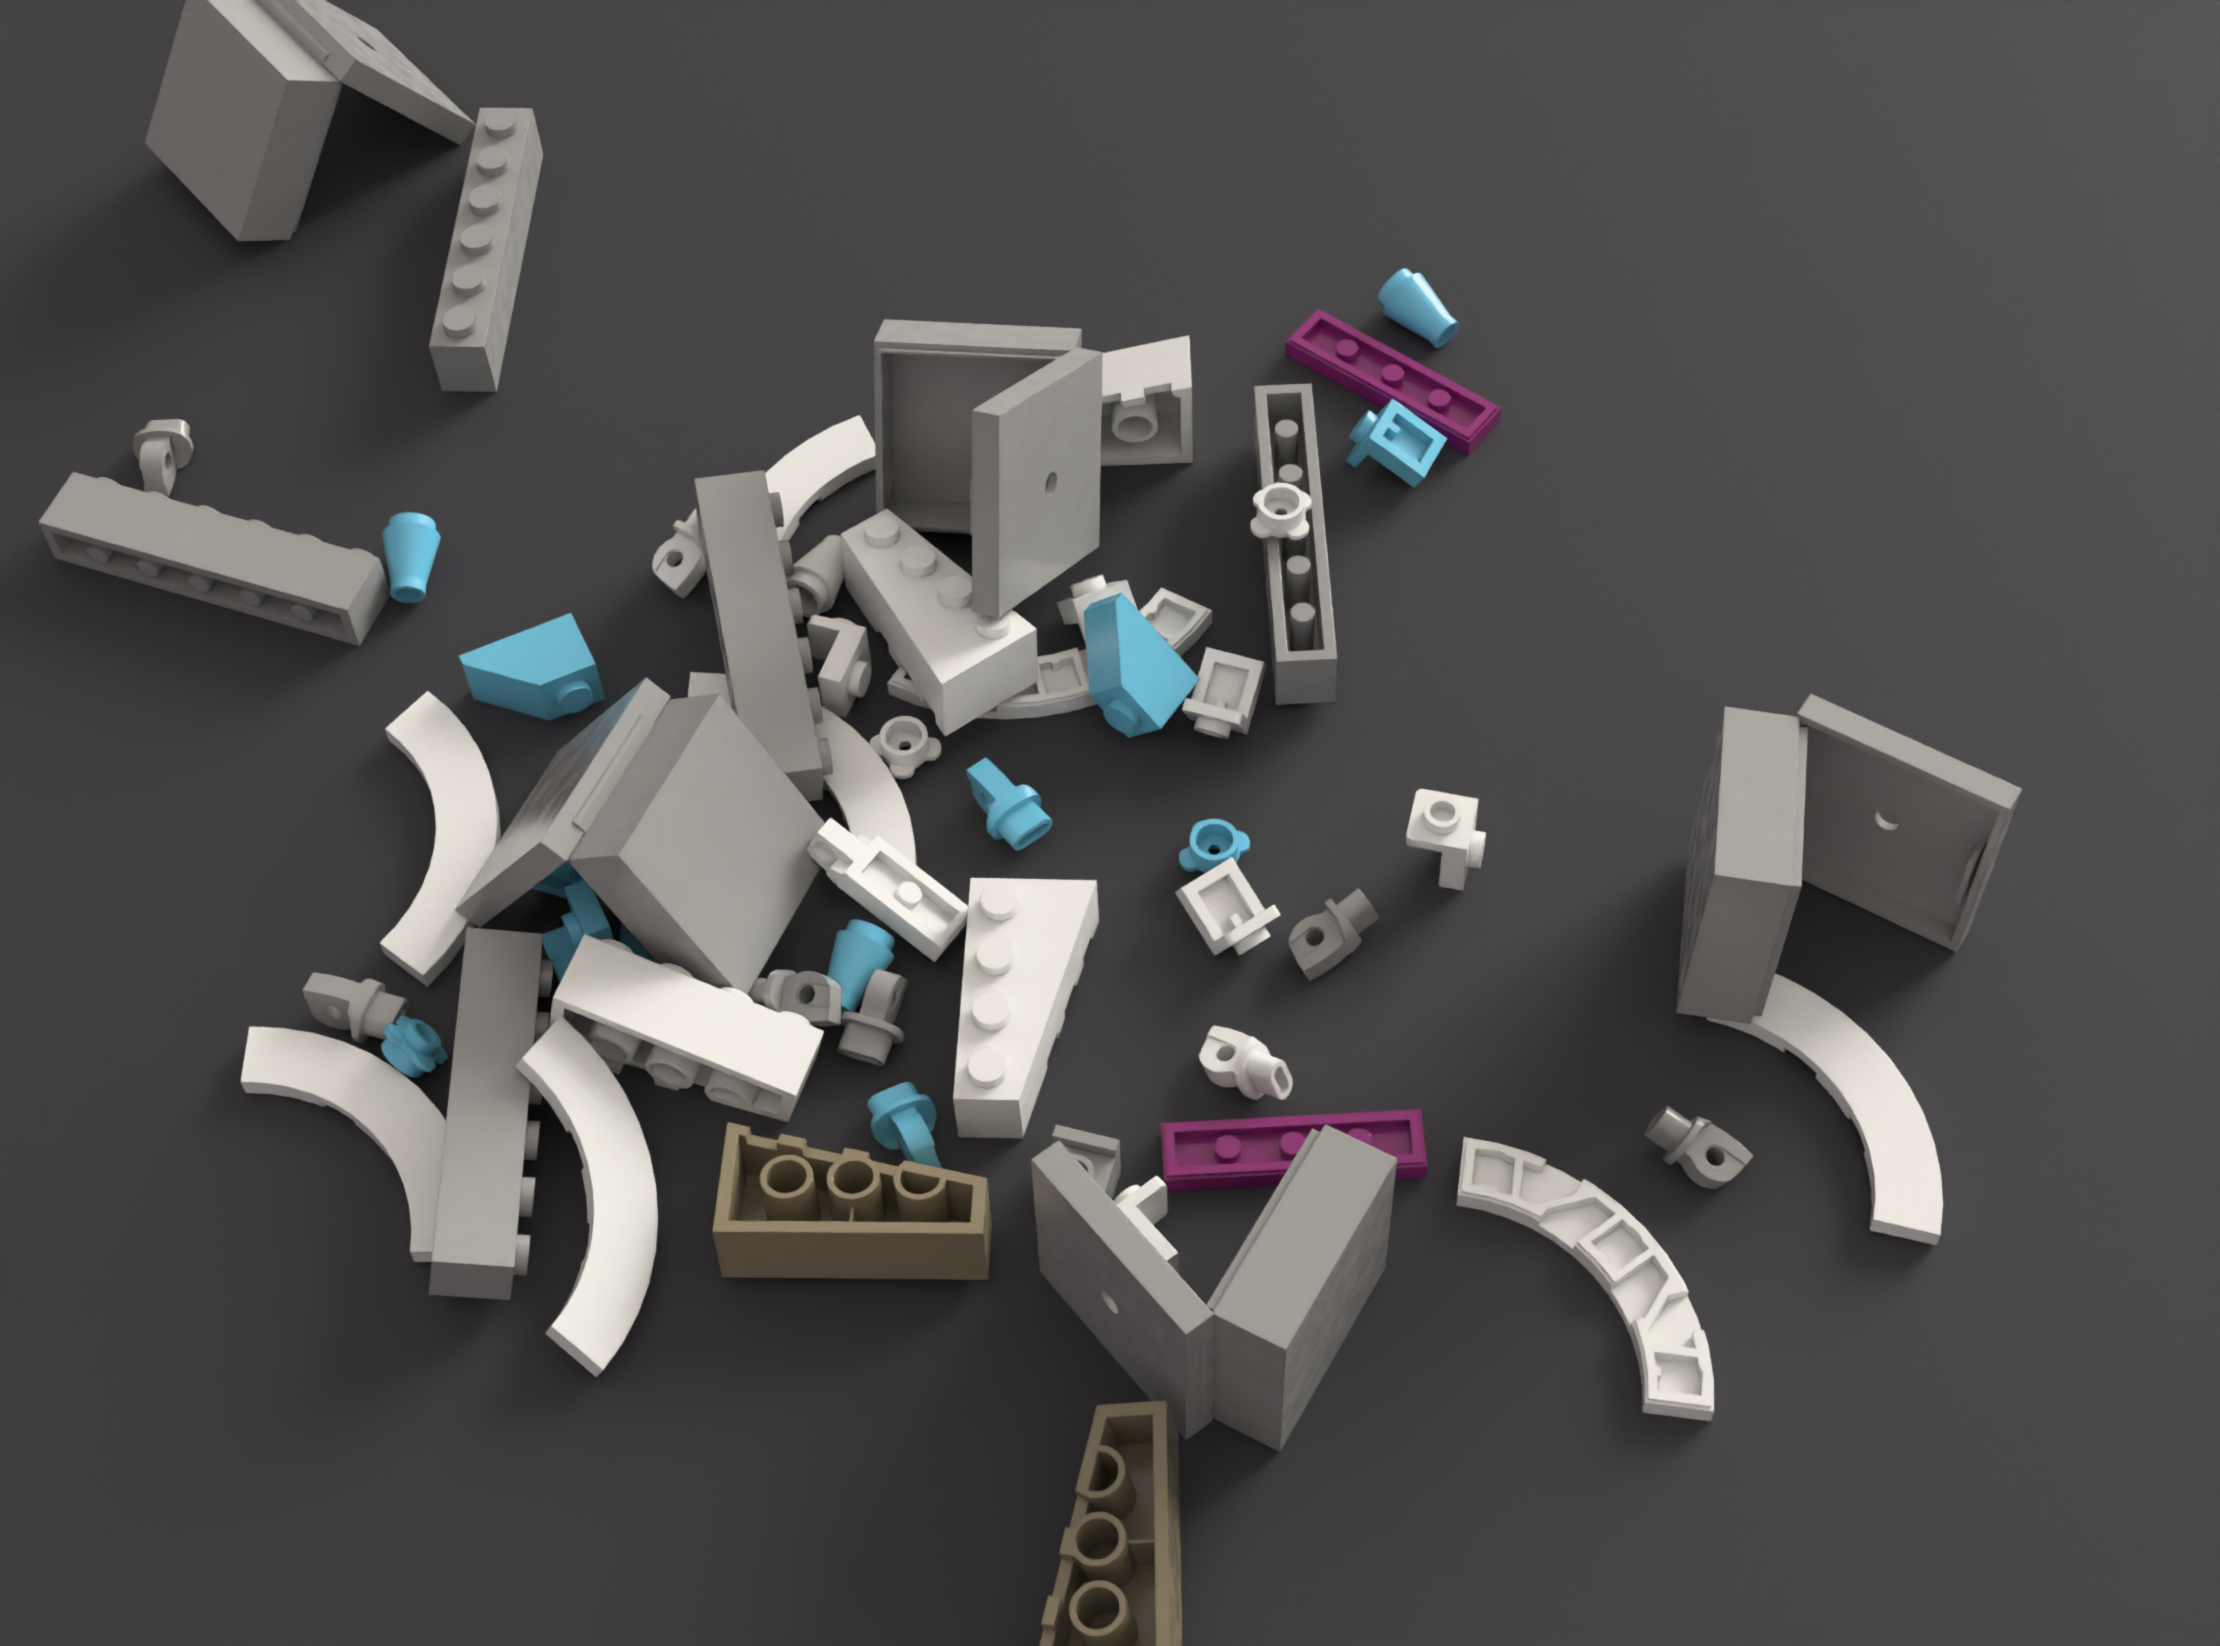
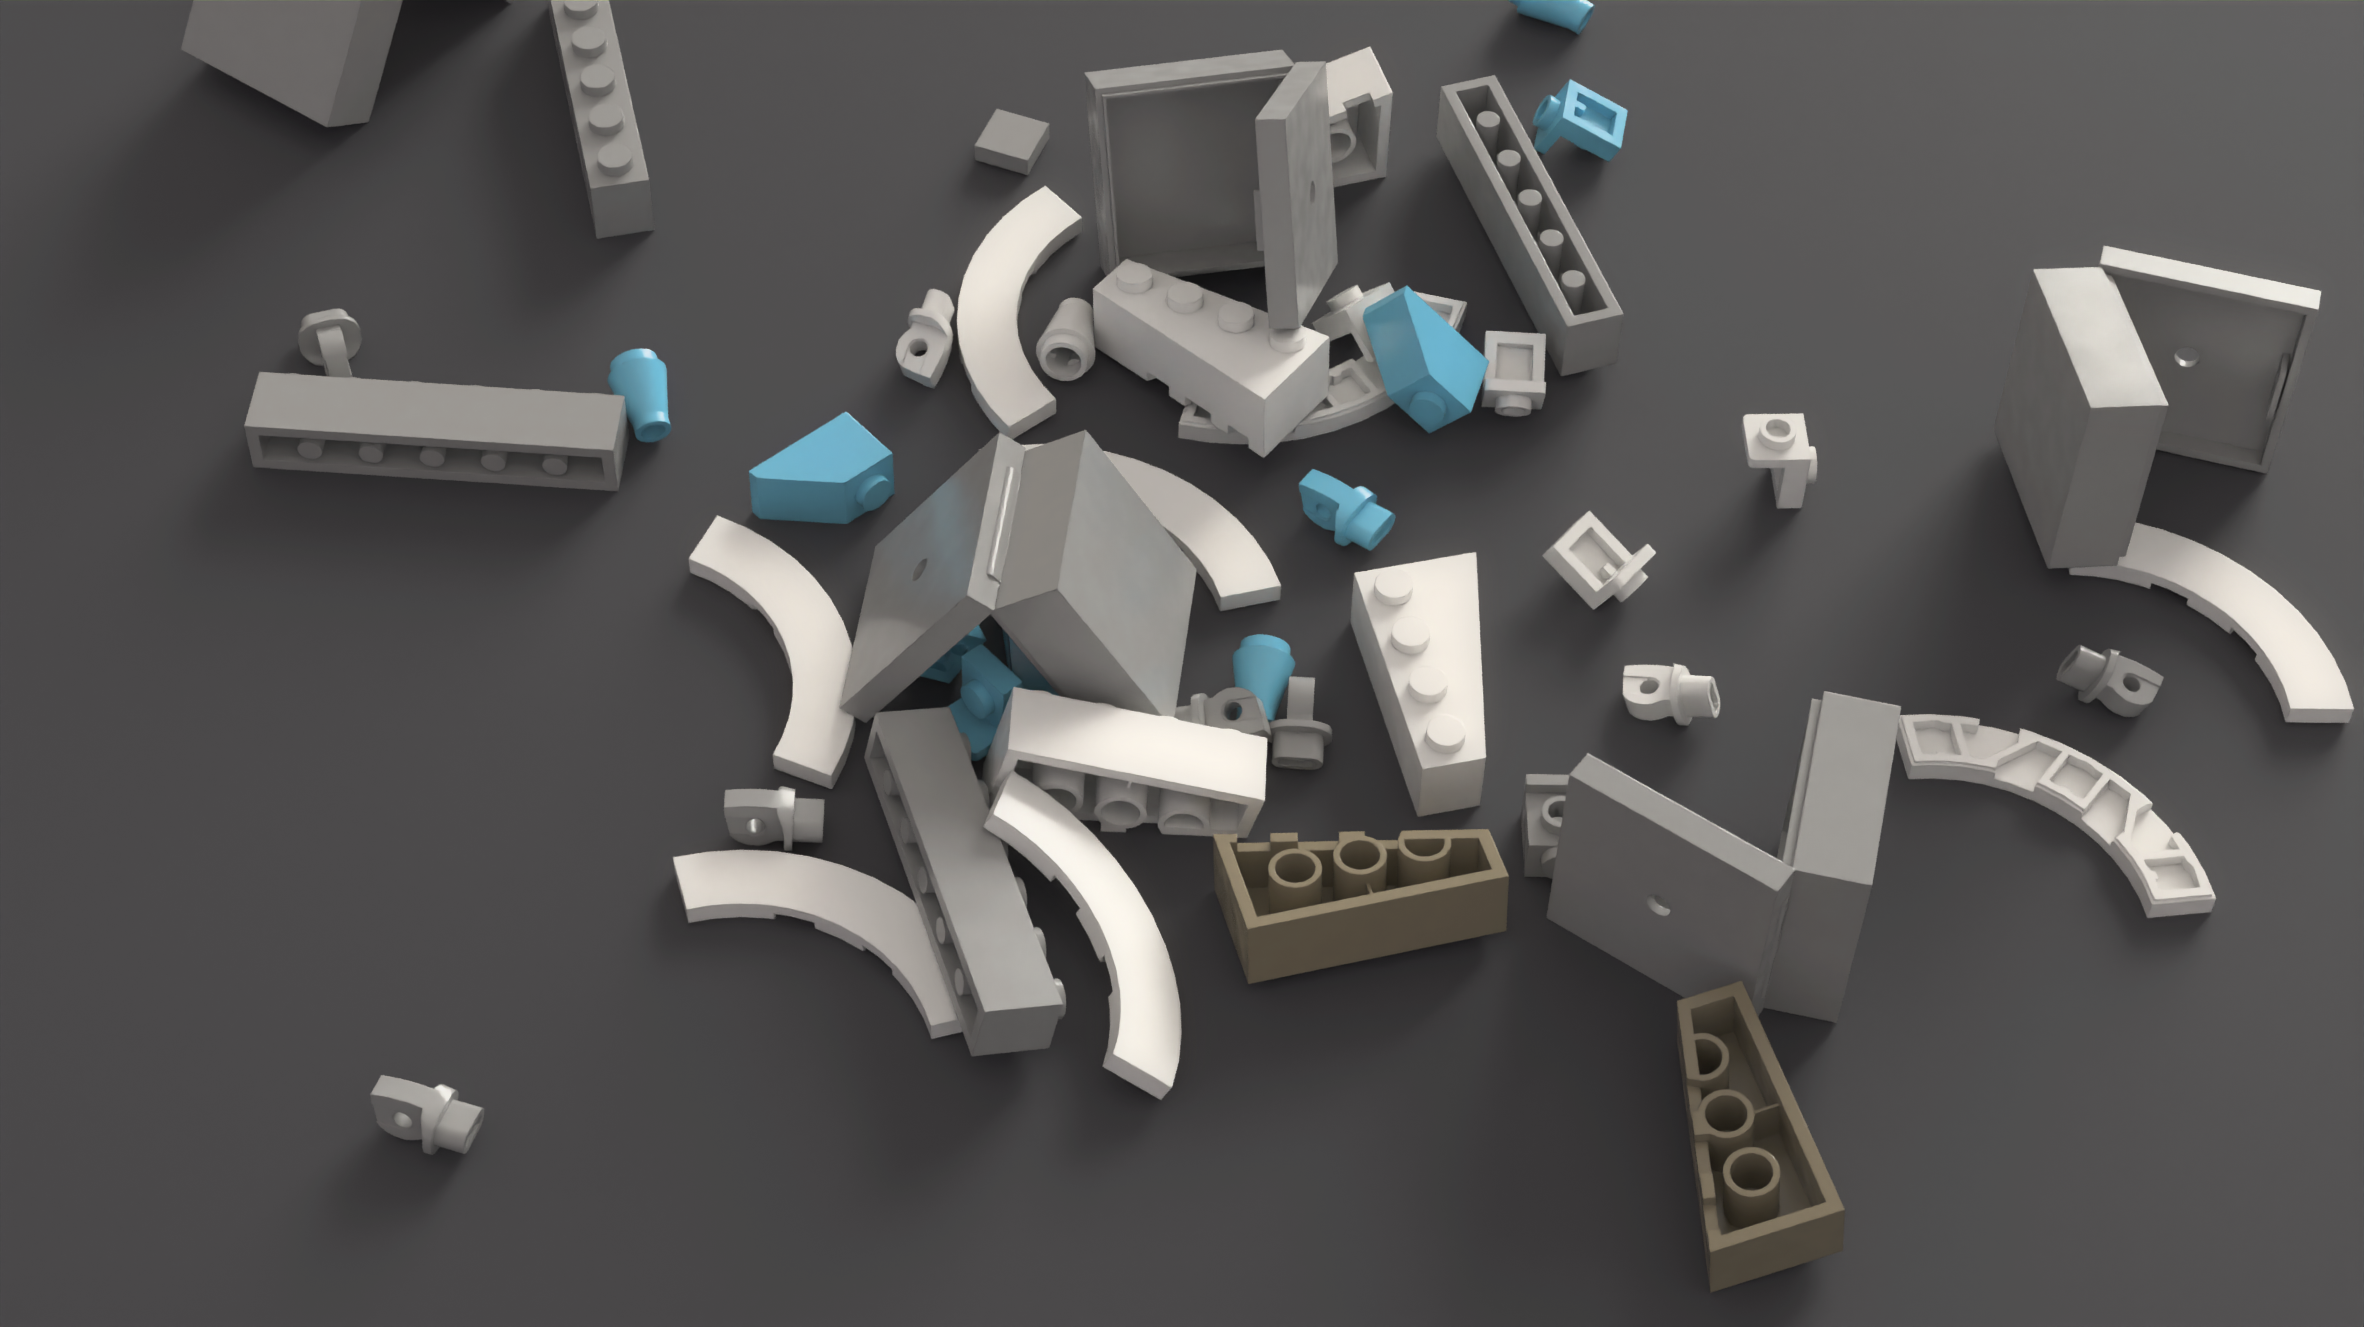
camera: 20 degrees left, 5 degrees down
(412, 1047) = (852, 840): medium azure plate -> none
(757, 624) = (1031, 364): light grey brick -> none
(846, 364) = (1012, 141): none -> light grey tile
(846, 659) = (1125, 397): white bracket -> none
(890, 888) = (1269, 602): white hinge -> none
(904, 1122) = (1368, 808): medium azure piece -> none
(905, 732) = (1222, 475): white plate -> none
(1213, 835) = (1556, 510): medium azure plate -> none
(1262, 1149) = (1722, 763): magenta tile -> none
(1281, 512) = (1520, 191): white plate -> none
(1338, 927) = (1707, 557): light grey piece -> none
(1384, 374) = (1546, 66): magenta tile -> none

